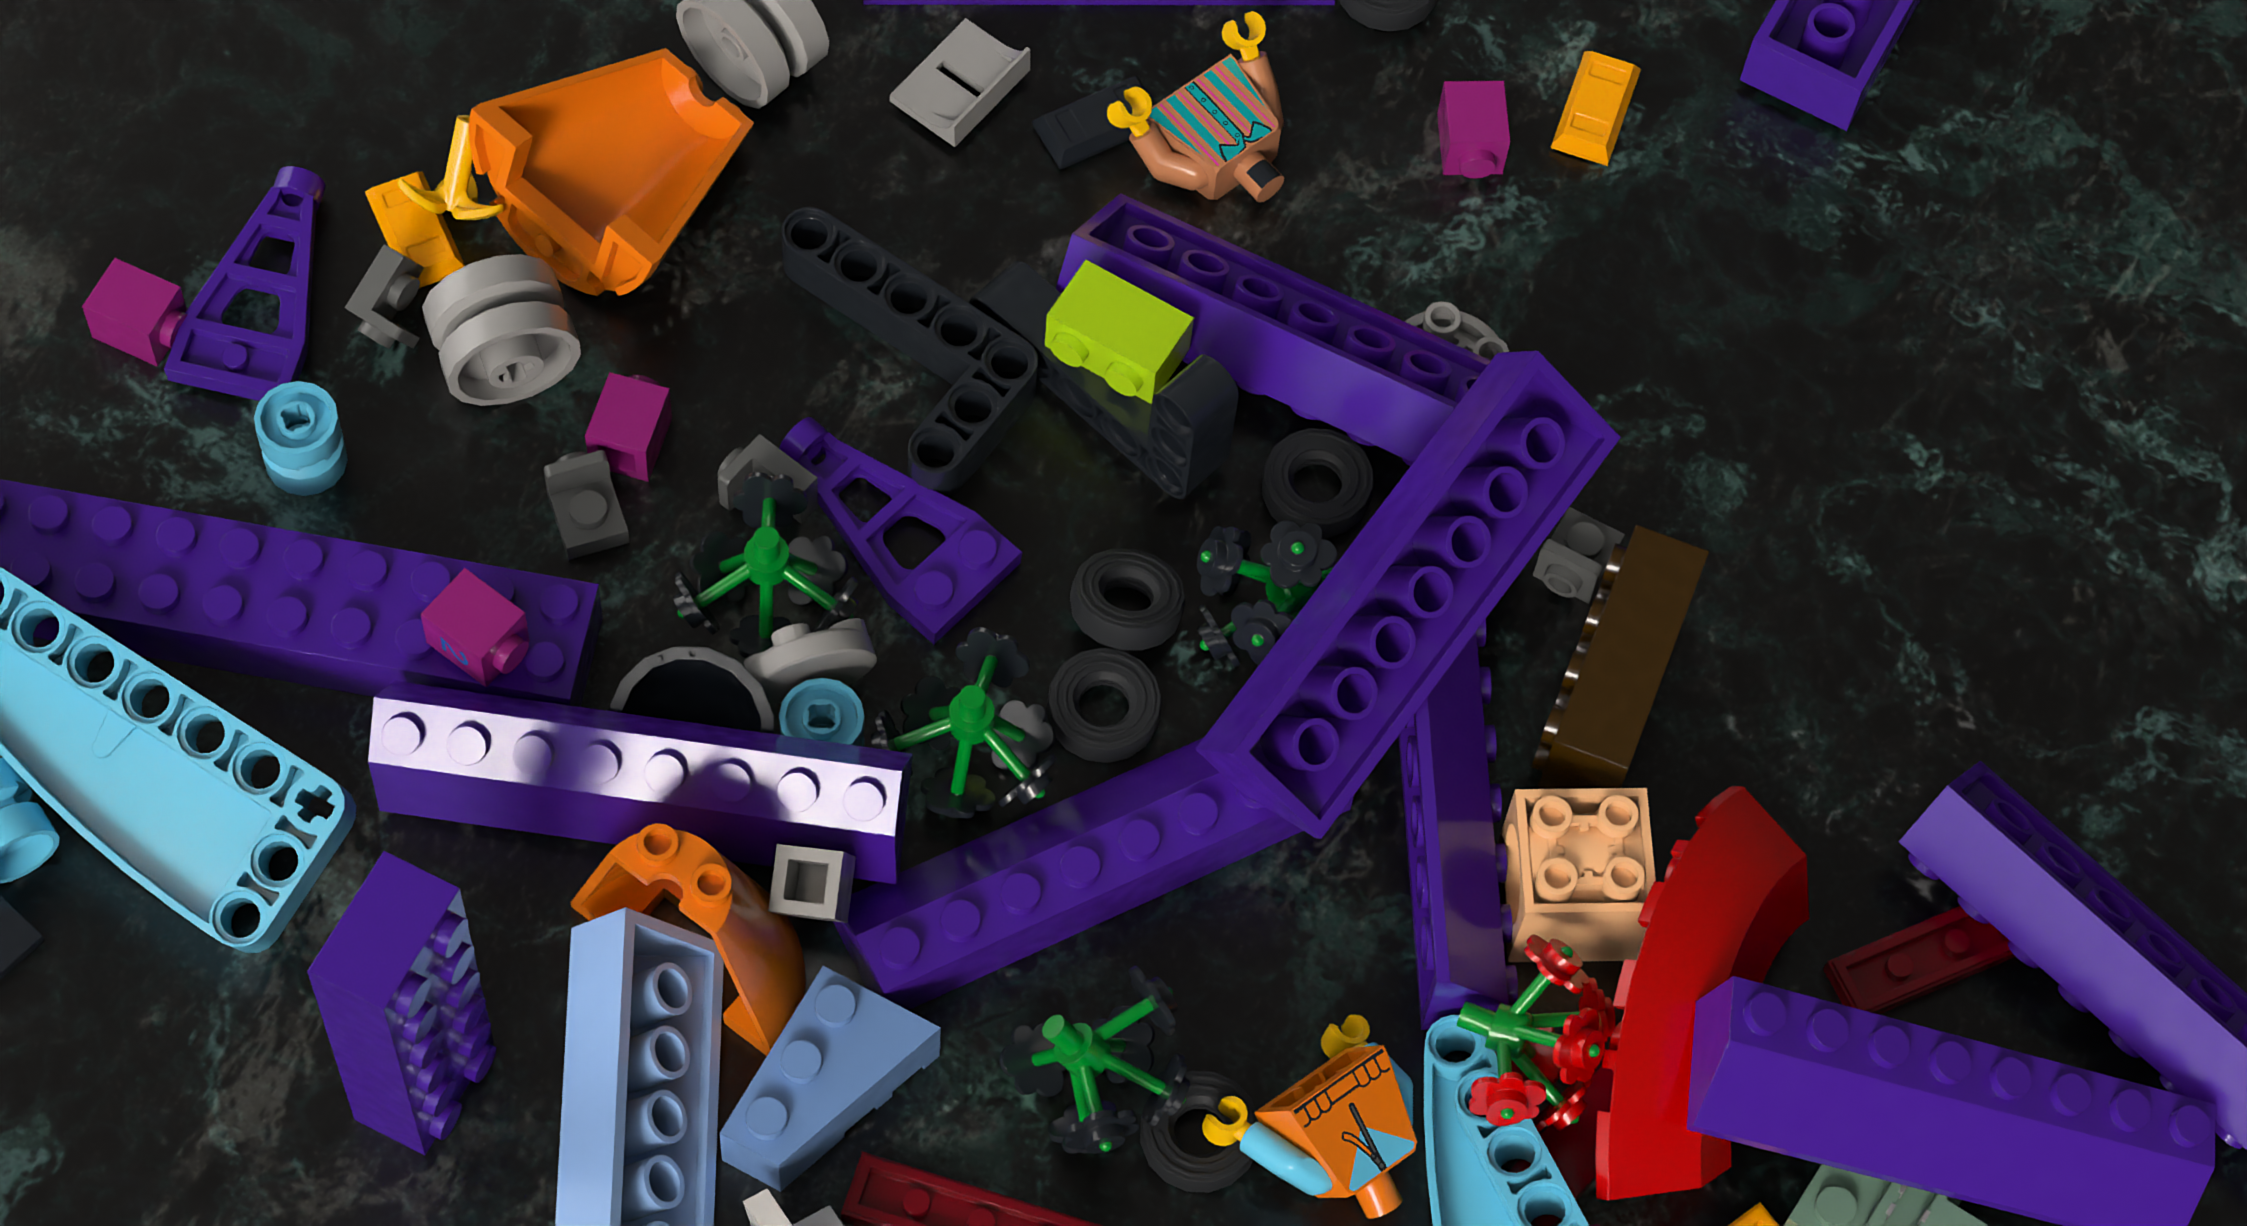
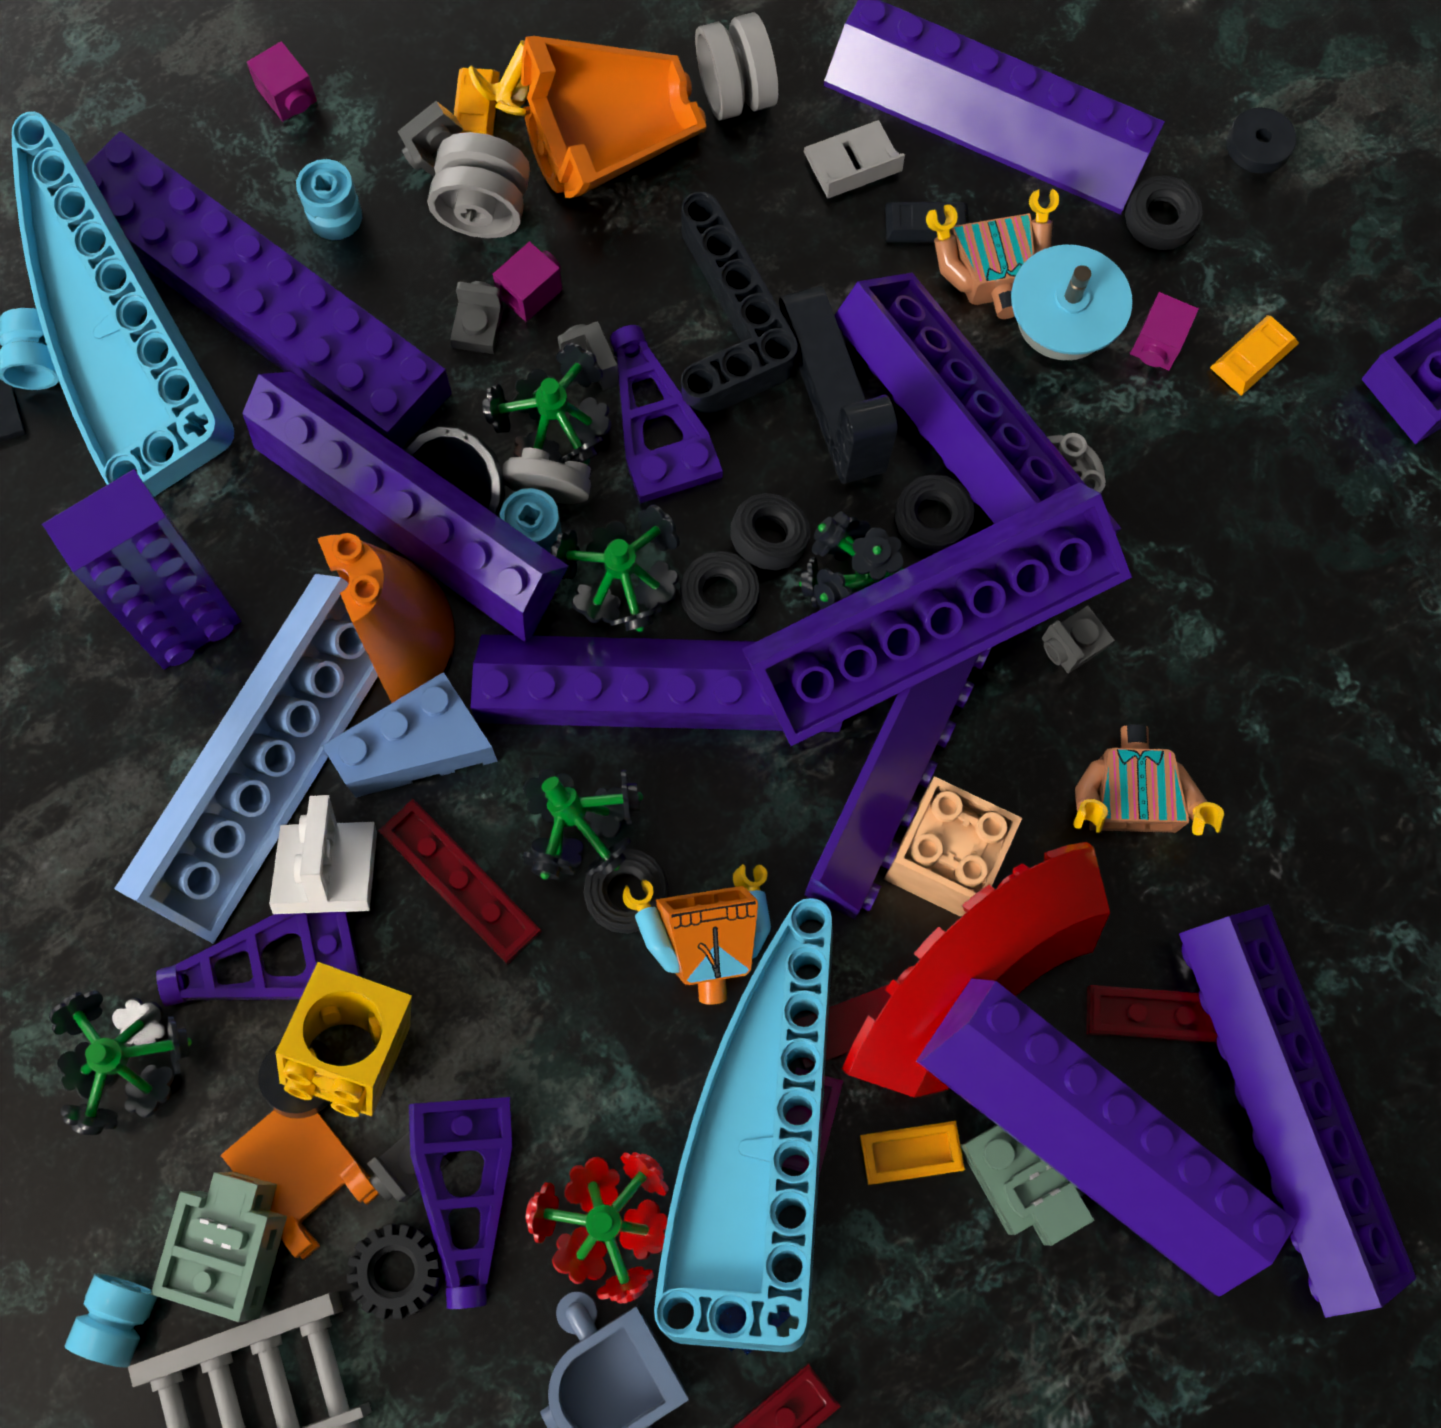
camera: 30 degrees right, 10 degrees up
(238, 358) = (327, 138): dark purple plate -> none
(476, 628) = (347, 360): magenta brick -> none
(812, 883) = (461, 618): light grey brick -> none
(1118, 332) = (851, 356): lime brick -> none
(1343, 142) = (1070, 301): none -> medium azure piece
(1530, 1050) = (860, 949): red plant -> none
(1618, 662) = (1057, 726): dark brown brick -> none
(1760, 698) = (1141, 790): none -> torso

